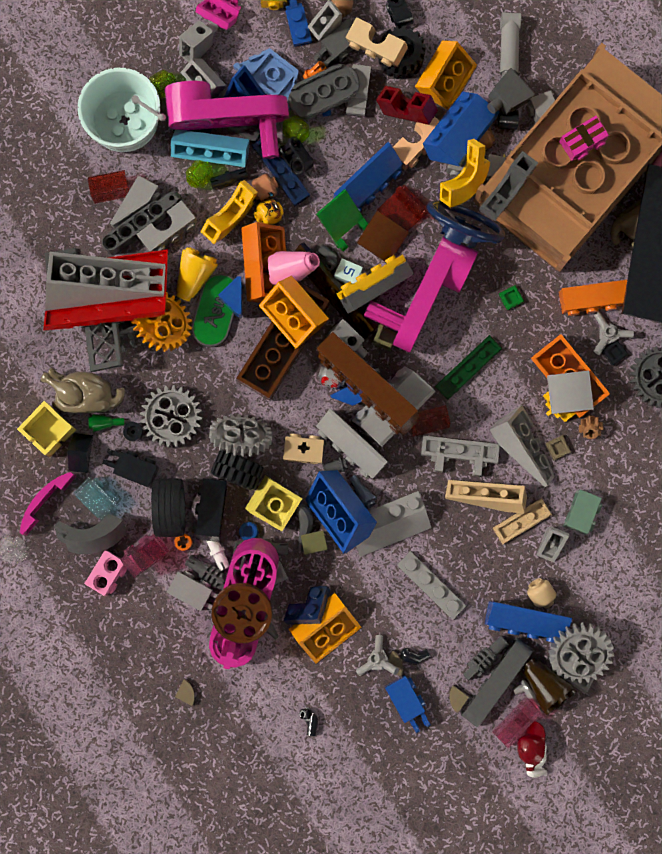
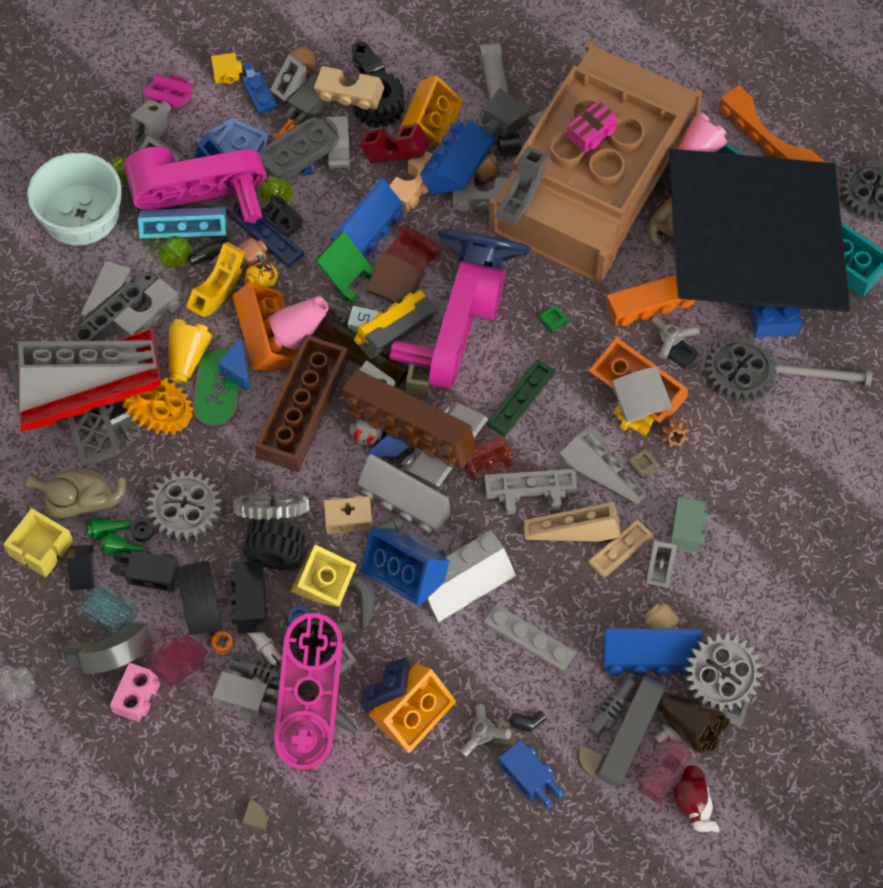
camera: 10 degrees left, 20 degrees down
(29, 519) = (63, 600): dark pink slope -> none
(108, 186) = (73, 280): clear red hinge -> none
(108, 439) = (114, 543): none -> green cone
(135, 99) = (92, 181): light grey hinge -> none
(242, 622) = (319, 686): reddish brown wedge -> none
(293, 311) = (308, 362): light orange slope -> none
(311, 719) = (416, 818): black arm -> none
(314, 542) = (380, 613): olive panel -> none
(471, 177) = (476, 207): yellow arch -> none

